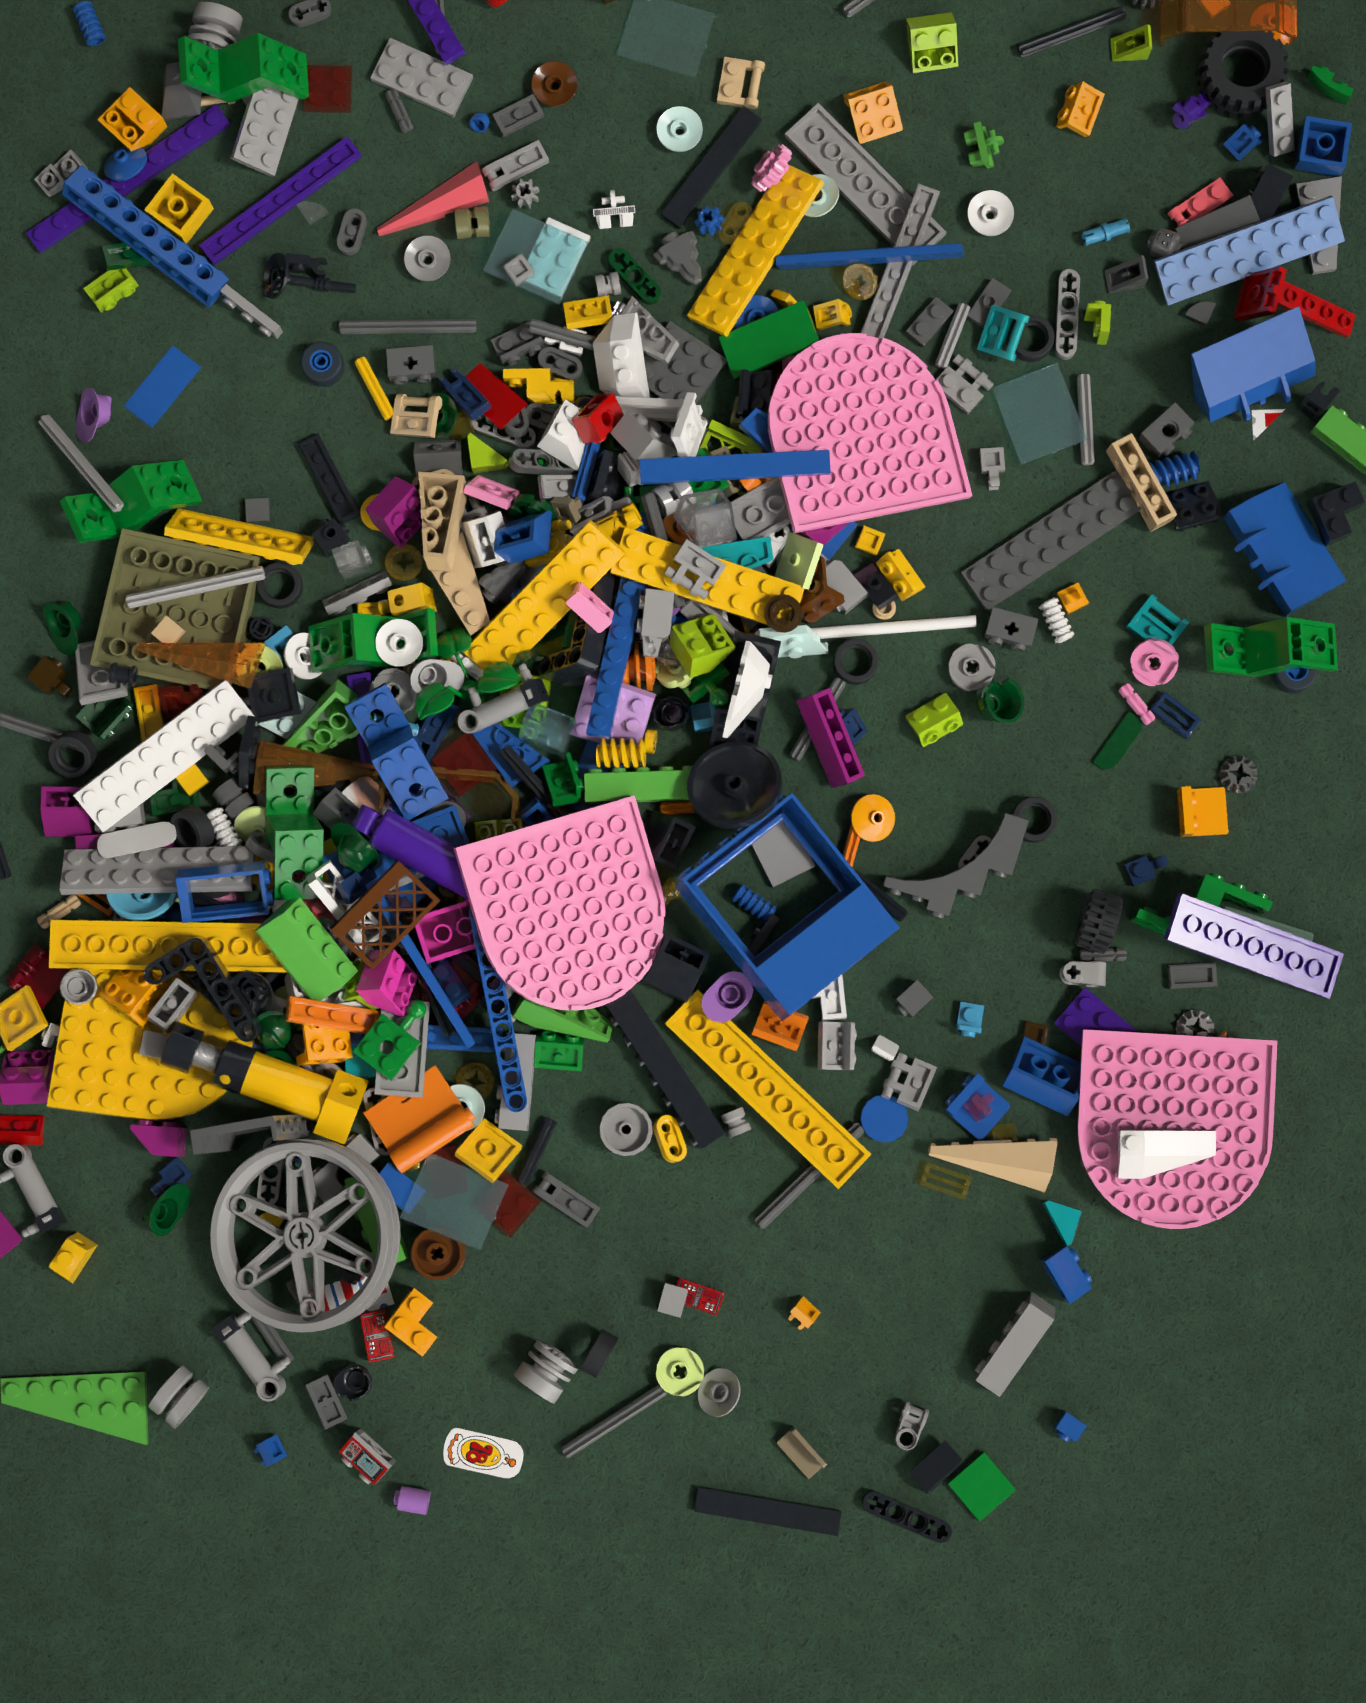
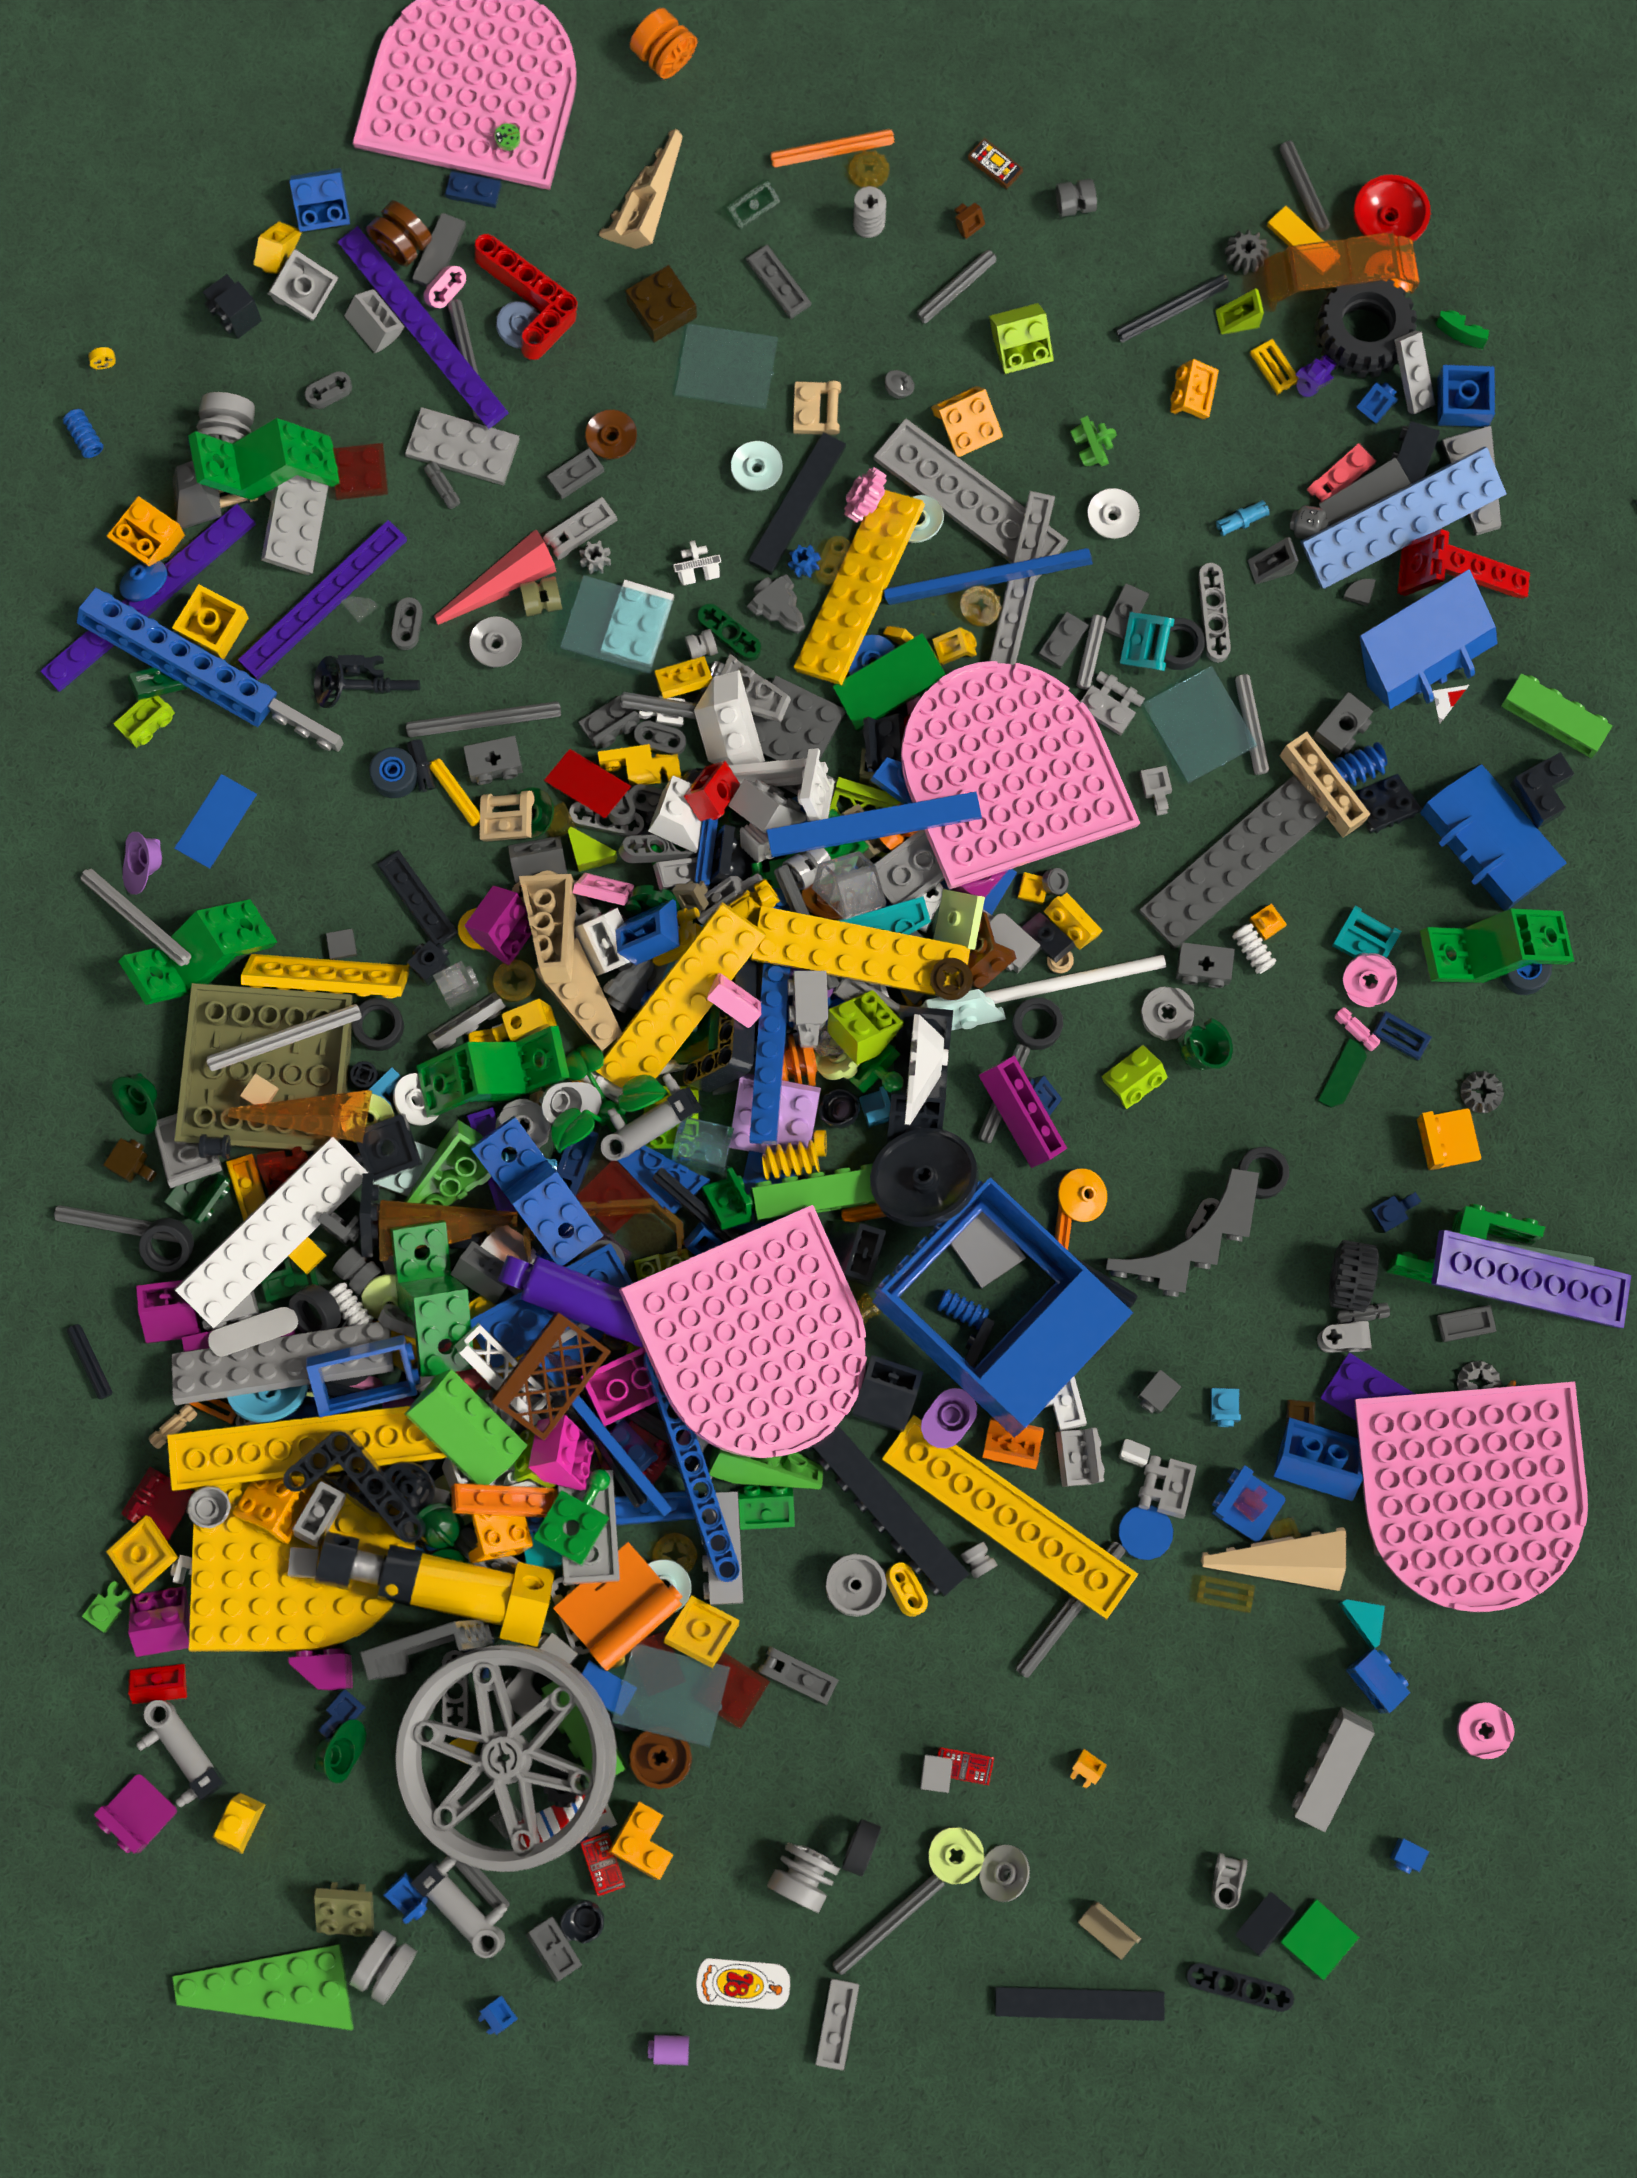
camera: 15 degrees left, 5 degrees down
(53, 176) = (65, 605): light grey slope -> none
(152, 1344) = (344, 1911): none -> olive plate
(206, 1341) = (407, 1898): none -> blue bracket
(346, 351) = (419, 756): none -> black axle
(352, 848) = (504, 1307): dark green piece -> none
(353, 885) = (510, 1348): dark blue plate -> none
(366, 1457) = (610, 2007): slope -> none
(390, 635) = (510, 1067): white dish -> none
(465, 395) = (559, 785): dark blue hinge -> none
(475, 122) = (528, 486): blue hinge -> none
(518, 269) = (600, 641): light grey tile -> none
(526, 657) = (669, 1066): clear green tile -> none
(536, 1151) = (756, 1625): black axle -> none
(558, 1499) = (837, 2024): none -> light grey plate
(700, 564) = (851, 935): light grey plate -> none
(816, 70) = (898, 384): none -> dark grey hat
(890, 537) = (1055, 881): none -> dark grey tile
(1100, 314) = (1251, 606): lime bracket -> none
(1156, 1151) = (1460, 1525): white wedge -> none
(1161, 1318) = (1493, 1717): none -> bright pink plate
(1163, 114) = (1285, 384): none -> yellow tile
(1315, 403) = (1504, 672): black hinge -> none

